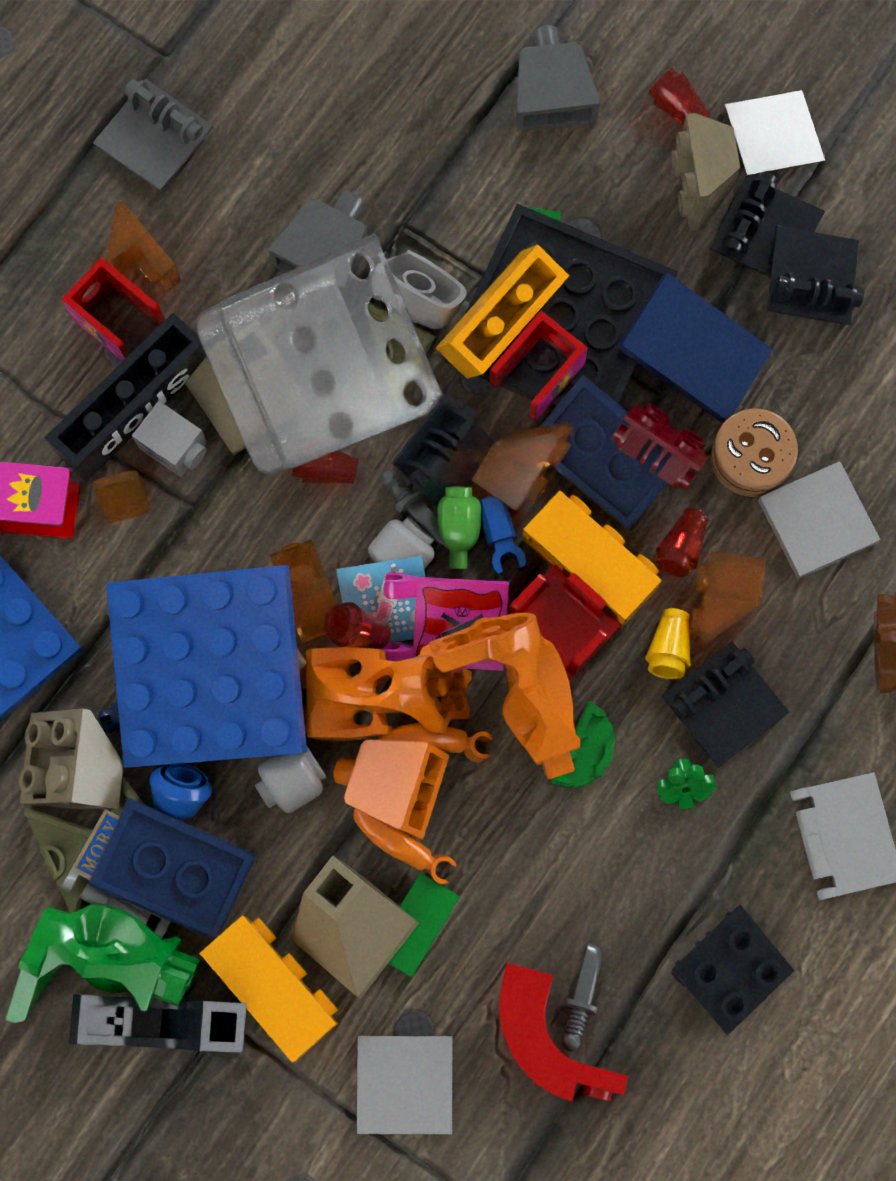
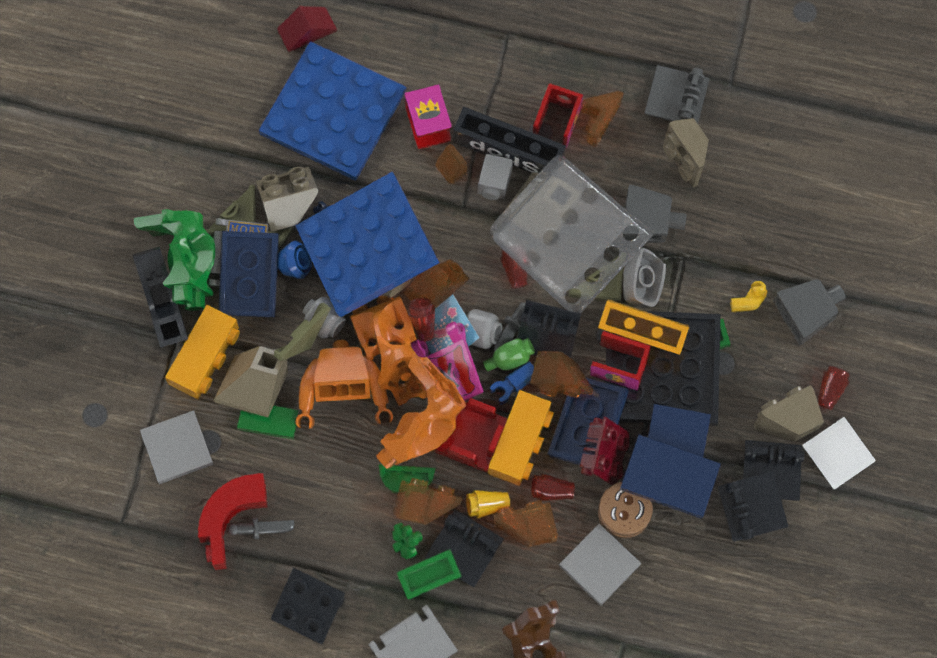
camera: 65 degrees right, 5 degrees down
(250, 148) = (688, 148): none -> dark tan slope
(313, 817) = (304, 334): none -> olive tile
(507, 157) = (752, 300): none -> yellow arm
(641, 736) = (422, 503): none -> clear orange slope
(736, 367) = (670, 476): none -> dark blue tile
(749, 770) = (429, 574): none -> green tile

